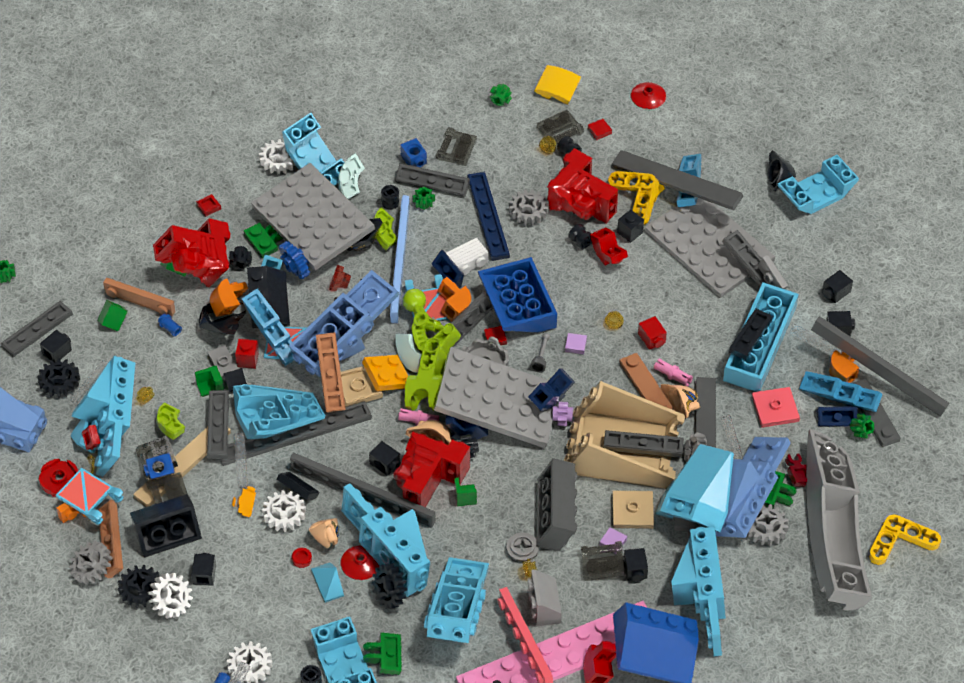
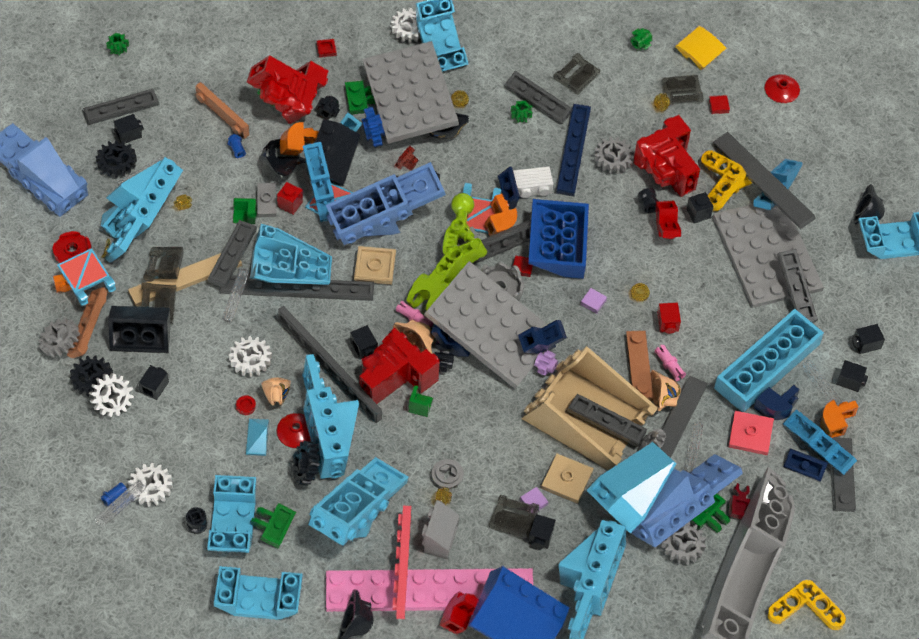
camera: 20 degrees right, 5 degrees up
(91, 437) = (114, 223): red tile -> none
(112, 315) = (190, 118): green panel -> none
(168, 421) = (190, 234): lime tile -> none
(168, 466) = (165, 273): blue brick -> none
(234, 378) = (268, 217): black tile -> none
(245, 501) = (223, 334): light orange piece -> none
(298, 485) = (274, 337): black tile -> none
(330, 372) = (350, 244): nougat plate -> none
(349, 176) = (462, 66): light aqua tile -> none
(361, 205) = (460, 94): none -> clear yellow plate
(385, 234) = (469, 133): lime tile -> none
(385, 372) = (405, 262): light orange plate -> none
(390, 197) = (491, 99): black wheel -> none
(400, 256) = (471, 160): light blue tile -> none
(407, 352) = (434, 249): light aqua tile -> none
(413, 153) = (533, 66): blue brick -> none
(538, 363) = (549, 305): dark grey hinge -> none
(556, 504) = (494, 447): dark grey brick -> none
(567, 144) = (680, 108): black wheel -> none
(750, 334) = (756, 354): black plate -> none
(771, 273) = (807, 303): light grey plate -> none
(786, 375) = (776, 406): none -> dark blue brick
(862, 426) = (823, 483): green gear -> none
(880, 366) = (867, 432): dark grey tile -> none

